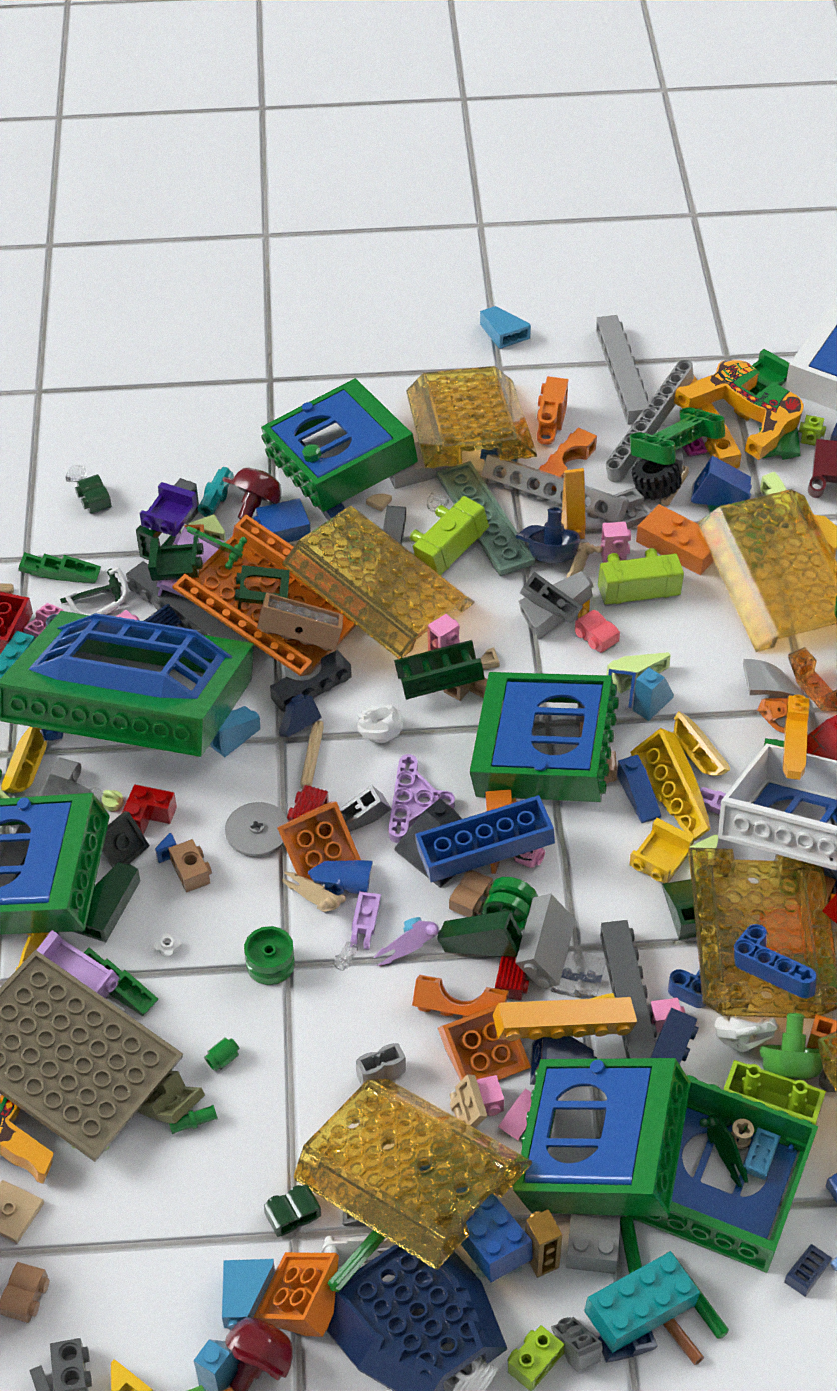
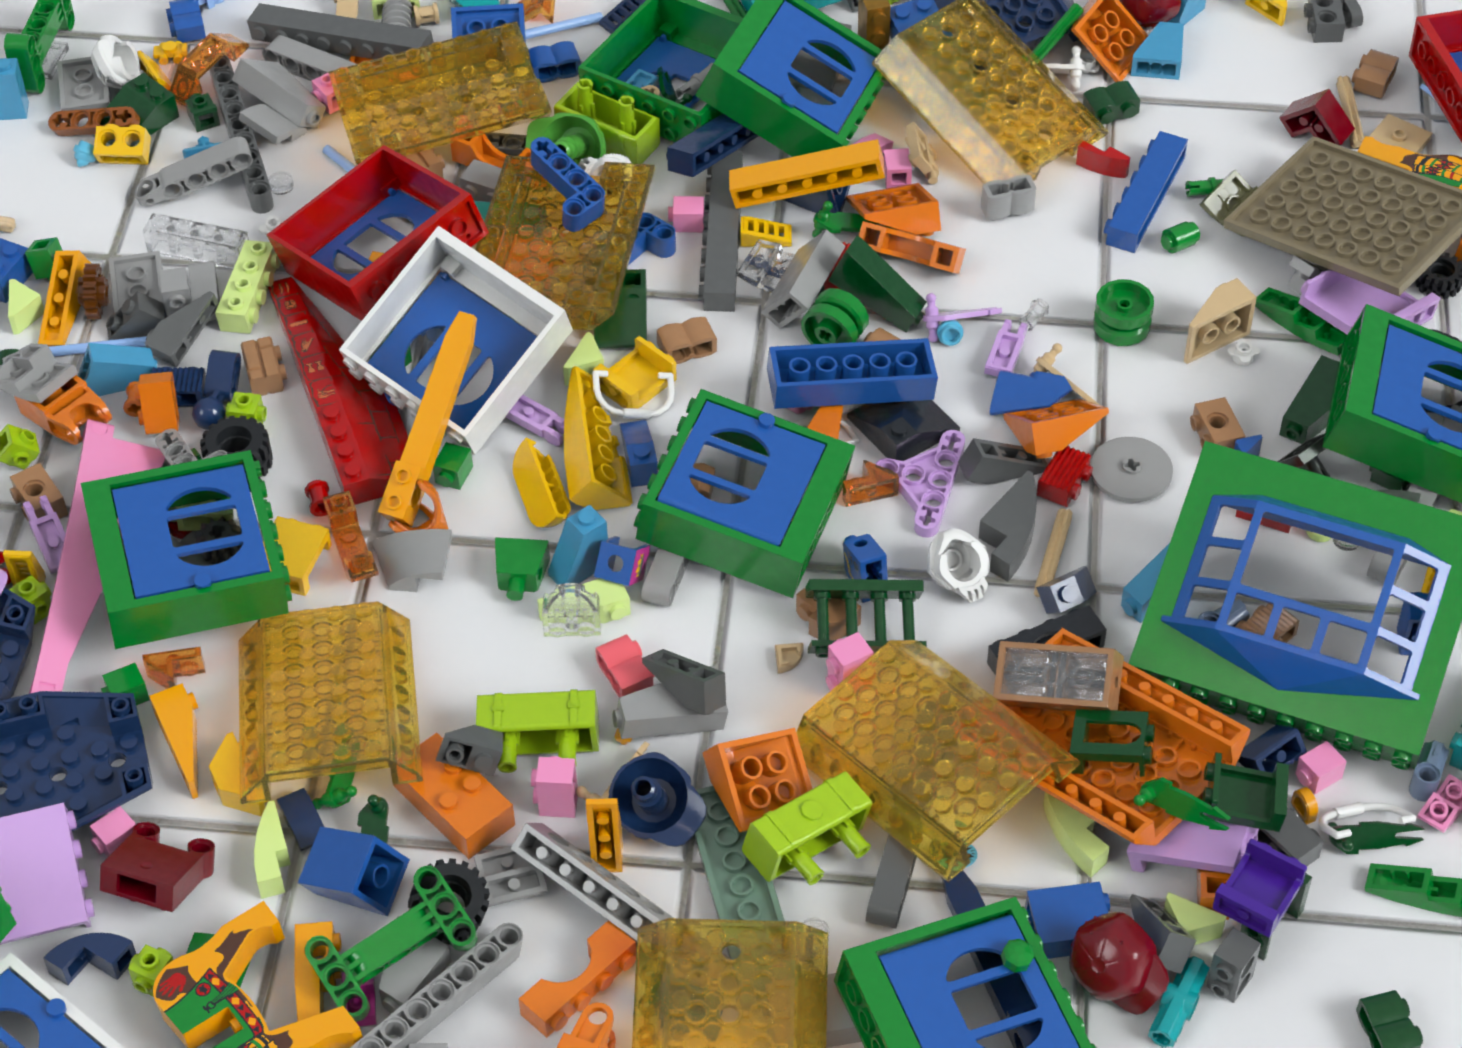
camera: 170 degrees left, 0 degrees up
(53, 1242) = (1350, 108): none -> tan axle
(89, 1201) = (1320, 116): none -> dark red brick
(136, 606) = (1305, 804): none -> light orange tile
(186, 952) = (1221, 320): none -> tan slope
(225, 508) = (1171, 939): none -> dark grey slope
(253, 1103) = (1145, 192): none -> blue brick
(291, 1131) = (1107, 162): none -> red slope
(345, 763) = (1011, 527): none -> dark grey slope
(447, 713) = (864, 555): none -> blue torso
(454, 781) = (873, 485): none -> clear orange slope
(488, 562) = (757, 774): none -> orange slope
(630, 887) = (687, 339): none -> medium nougat brick
(644, 648) = (571, 612): none -> clear slope
(648, 823) = (634, 413): none -> white piece
(673, 540) = (472, 749): none -> dark grey slope
(694, 689) = (520, 565): none -> green torso
(702, 1169) = (694, 83): none -> light grey pin

